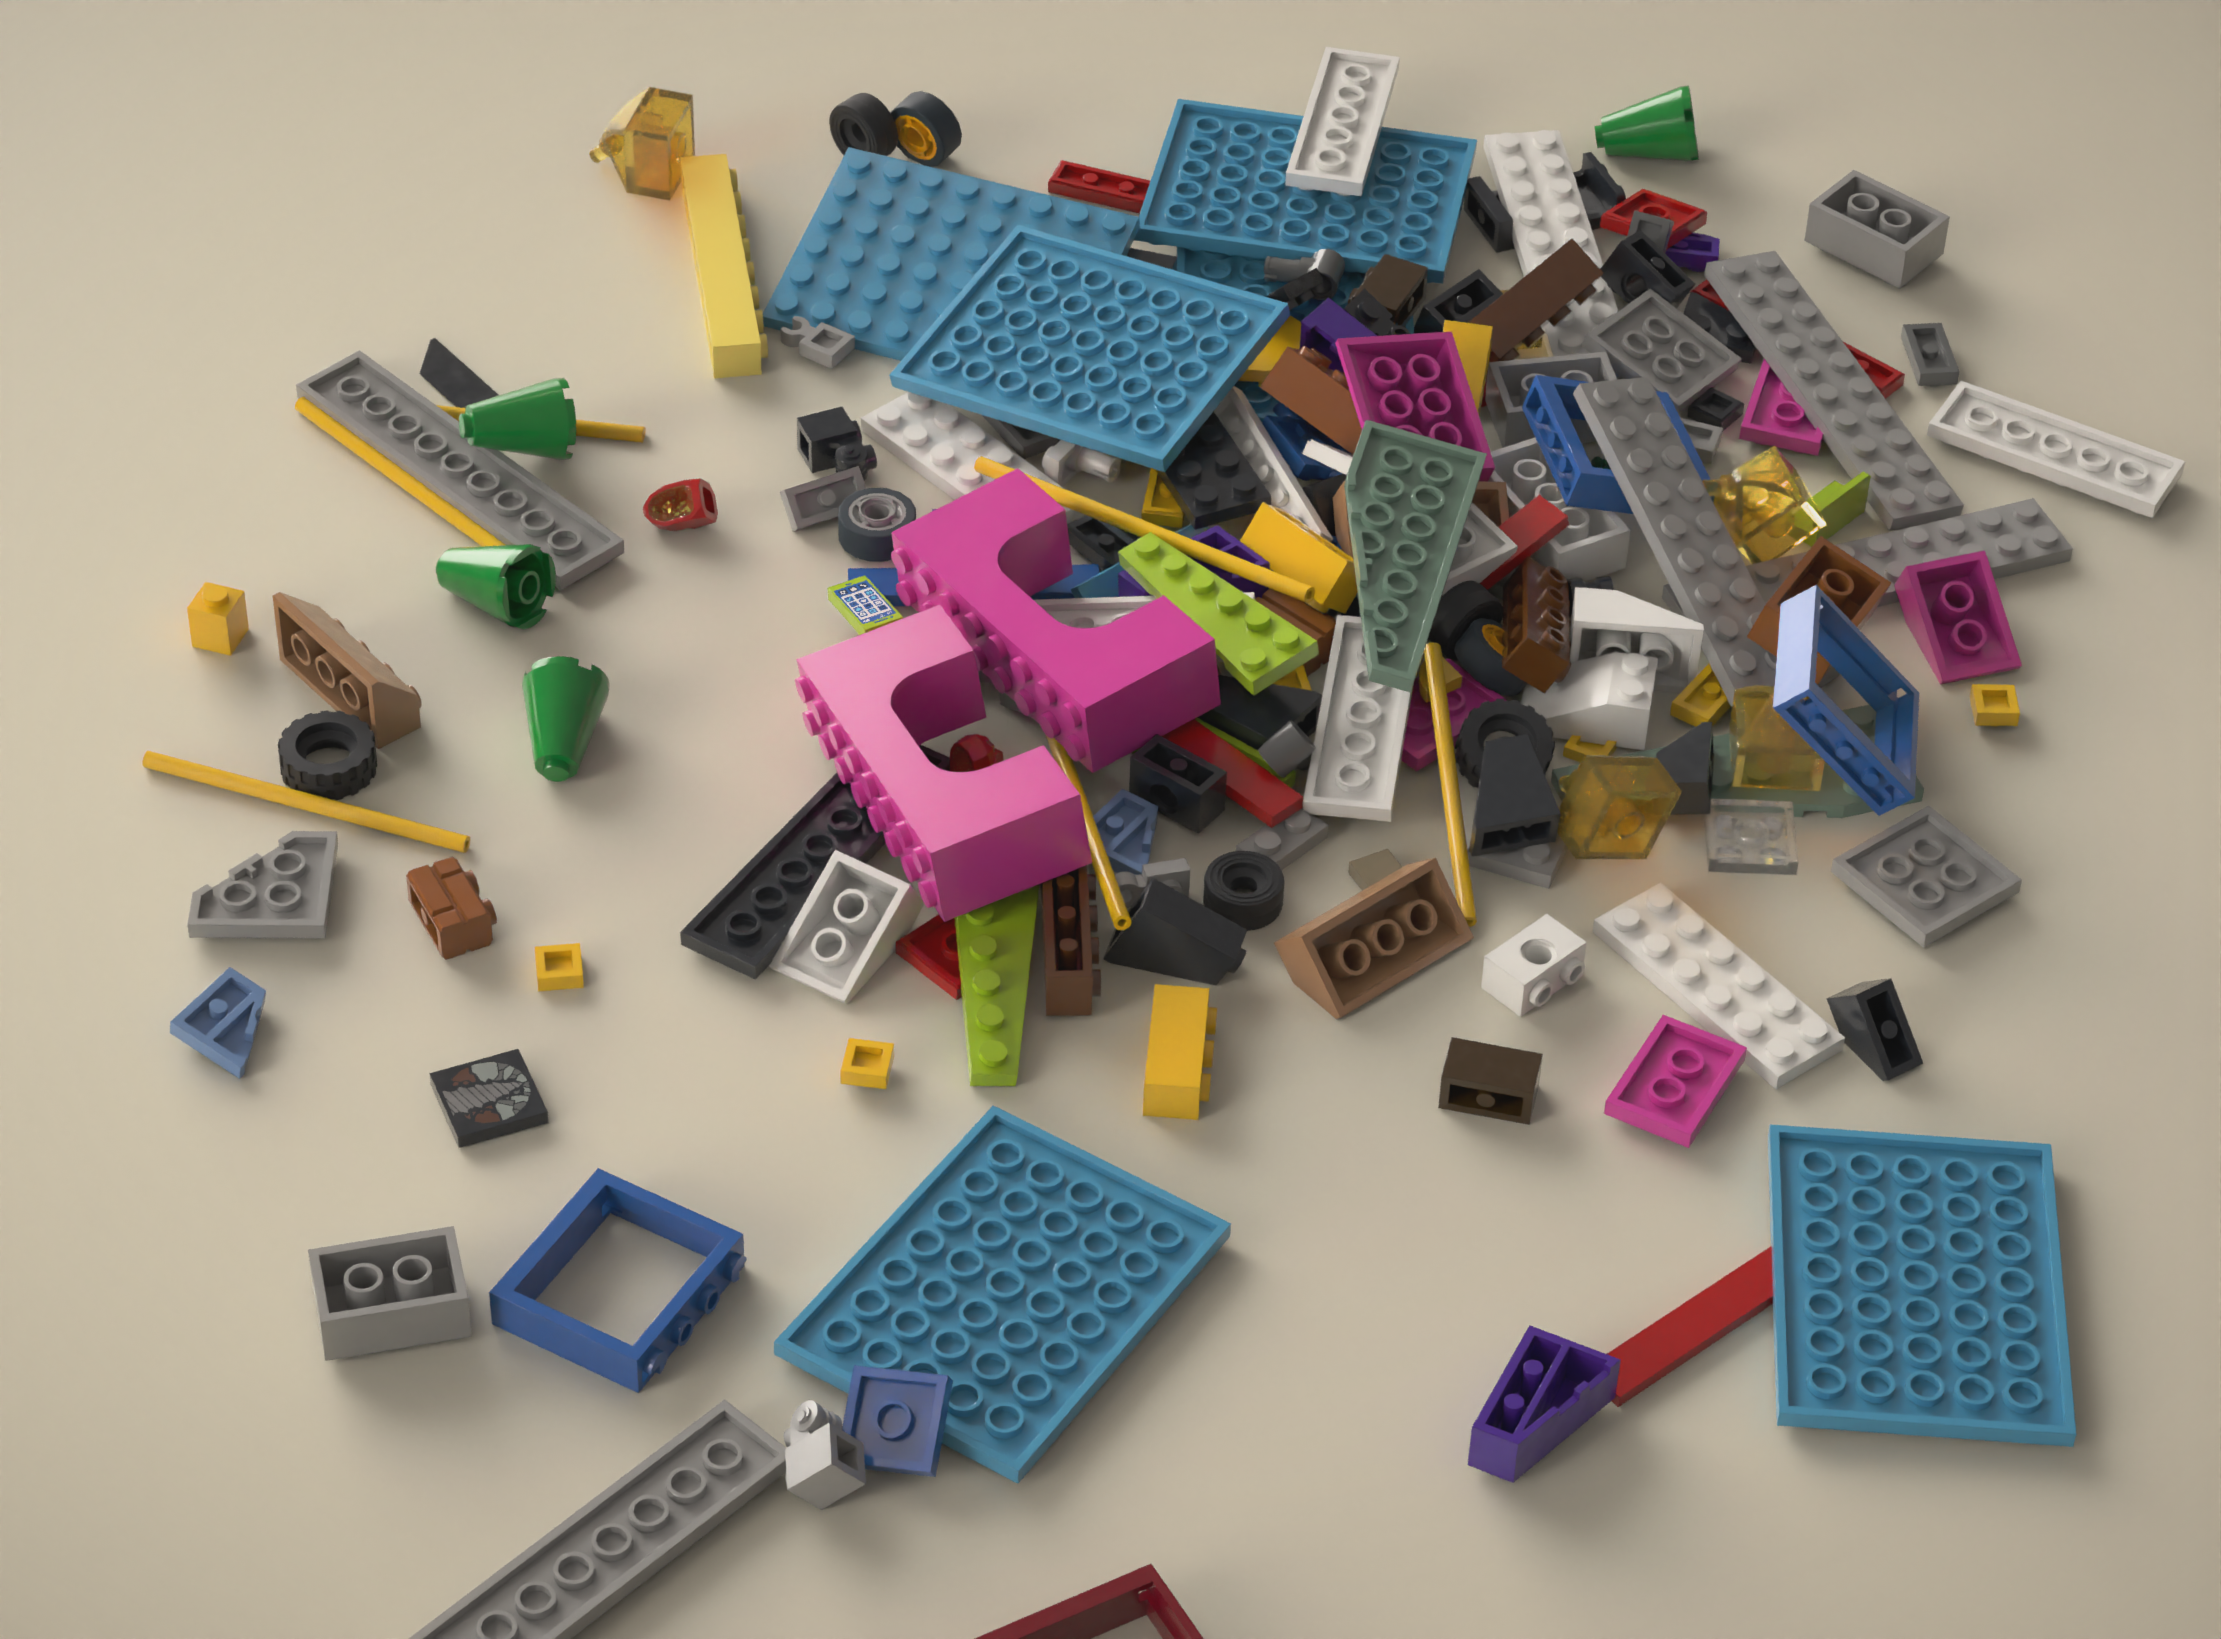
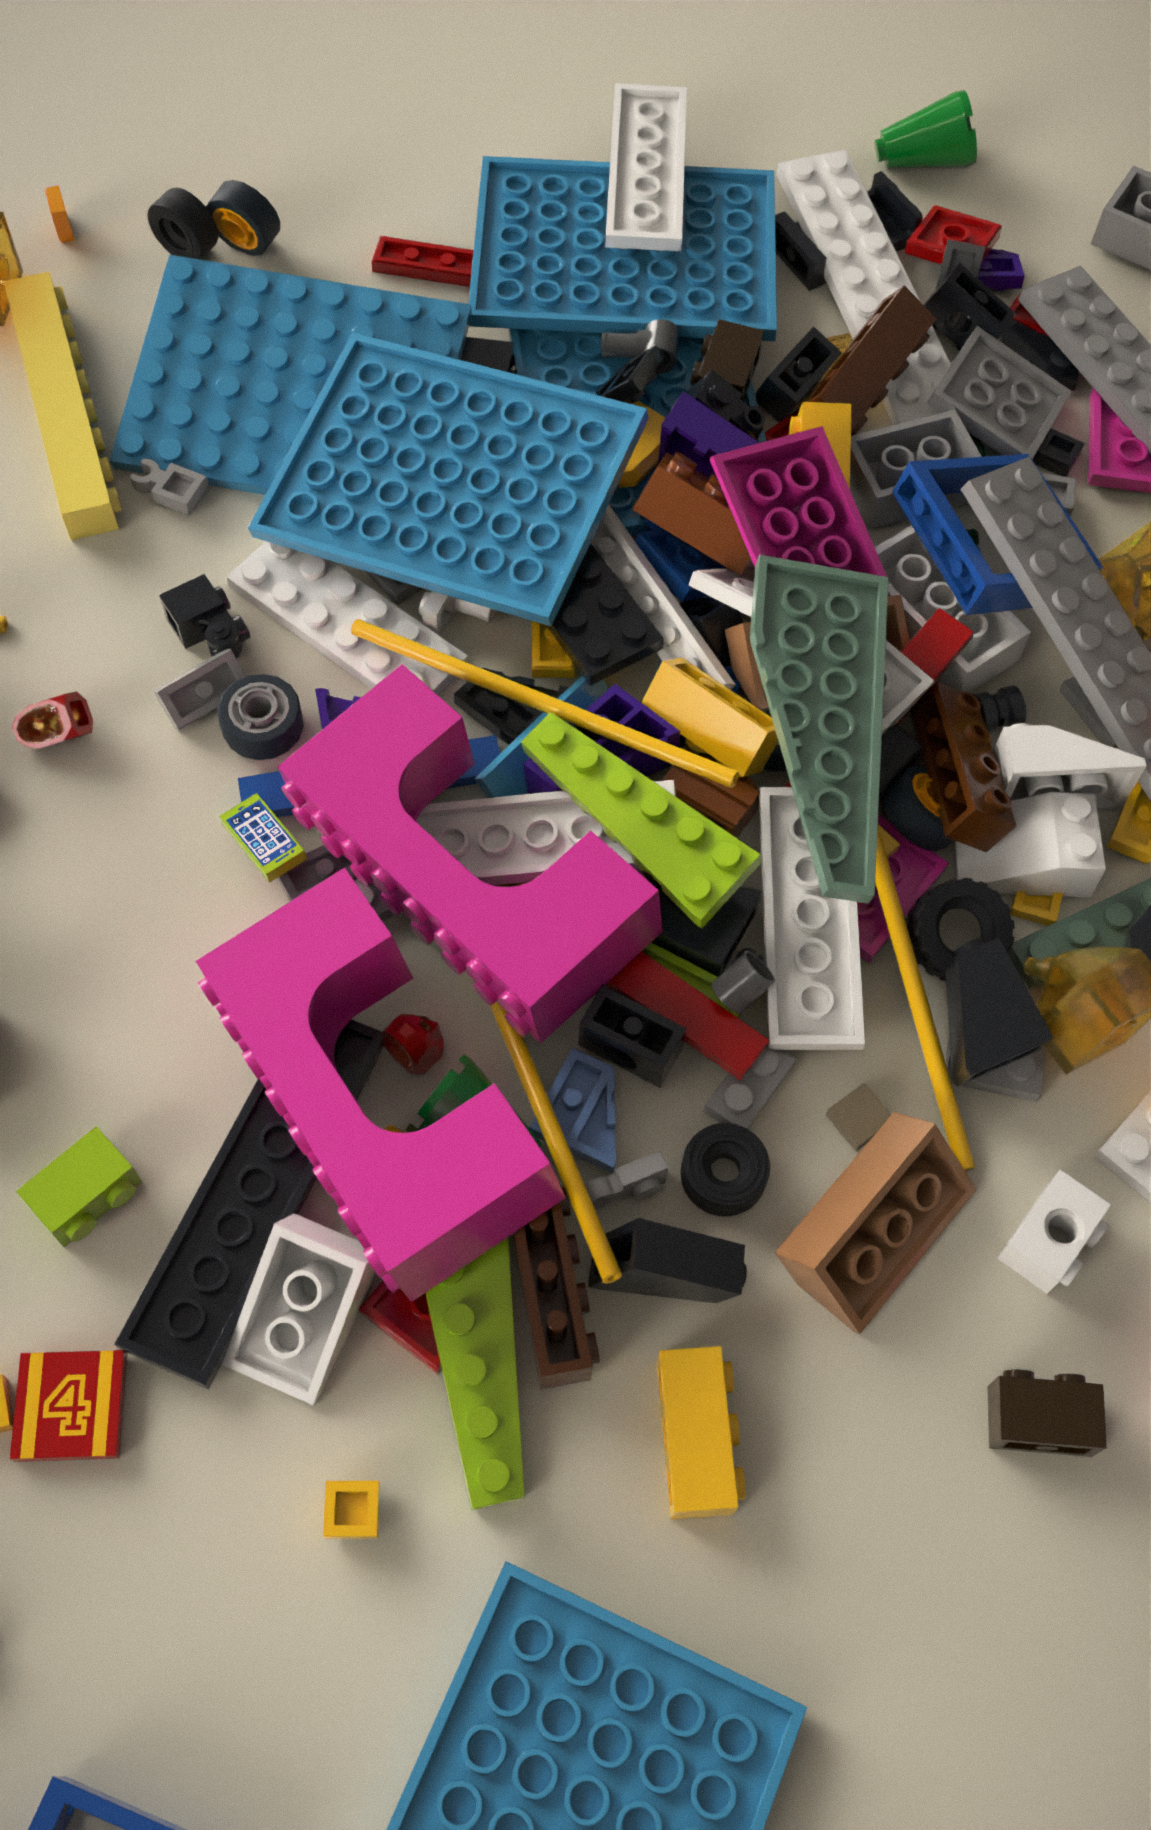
camera: 10 degrees left, 20 degrees up
(634, 974) = (69, 1406): none -> red tile
(663, 830) = (80, 1187): none -> lime brick
(739, 110) = (59, 214): none -> light orange tile

